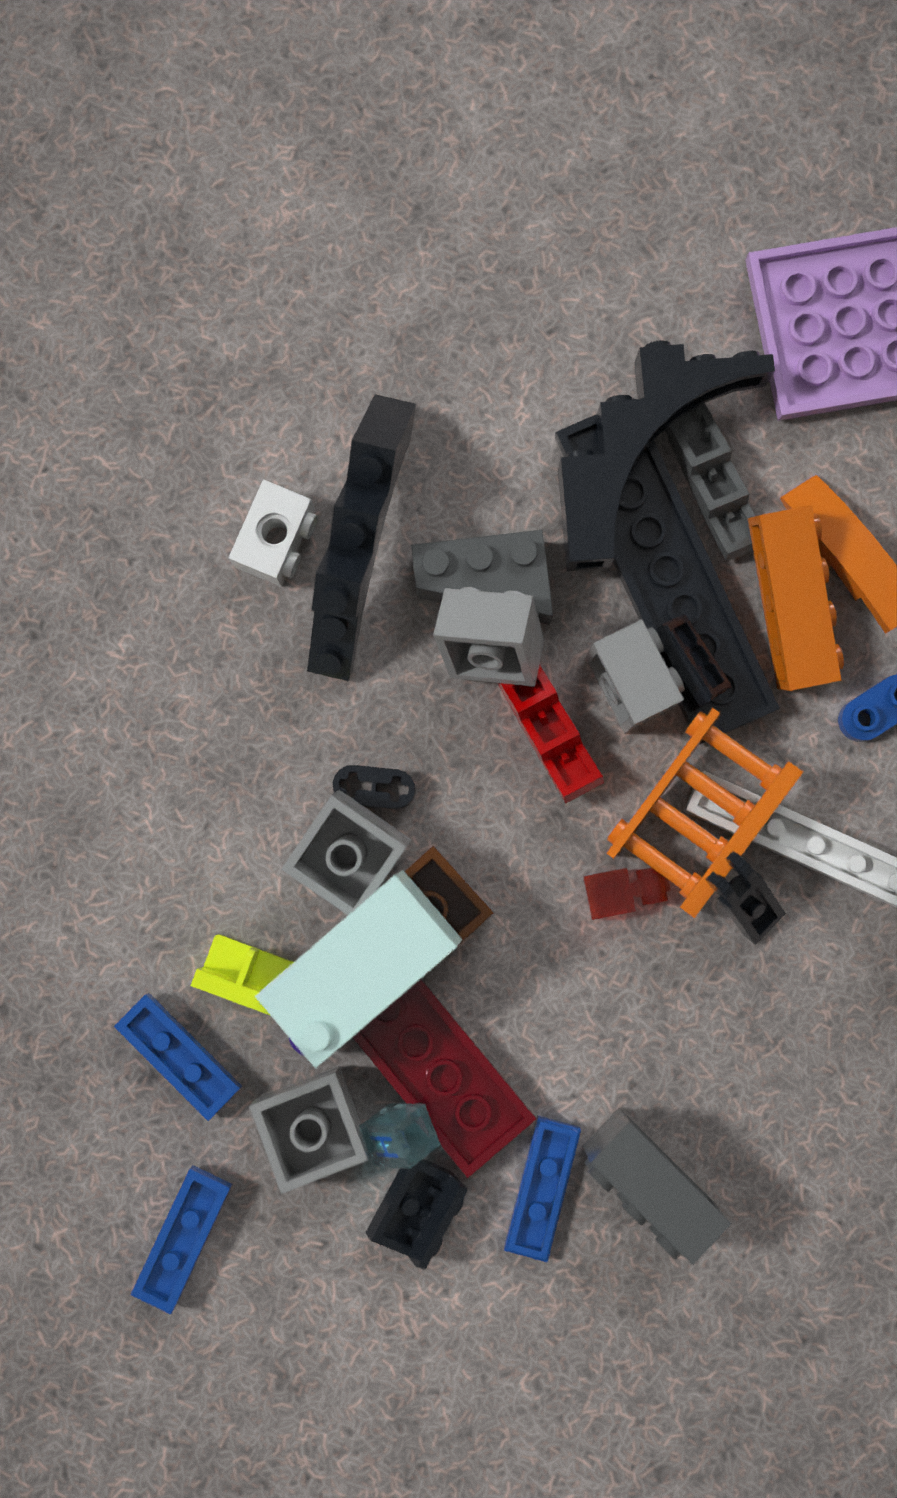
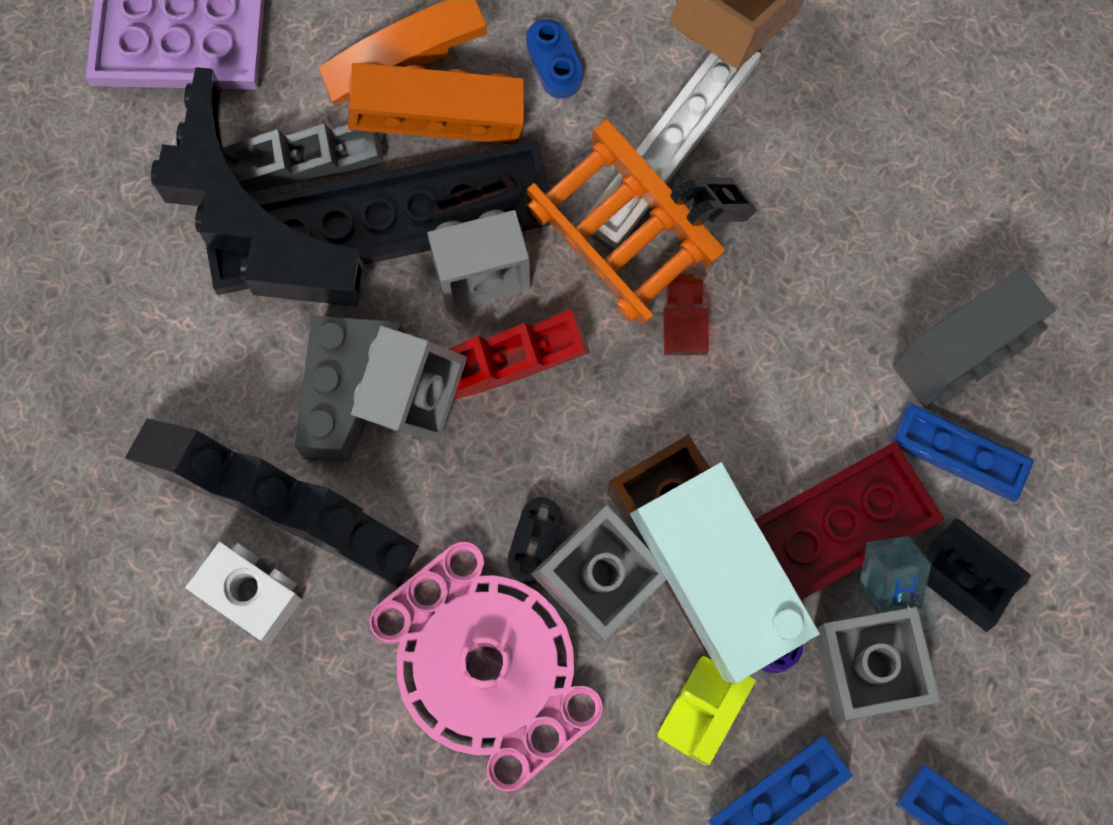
camera: 85 degrees left, 10 degrees down
(256, 805) = (488, 709): none -> bright pink piece

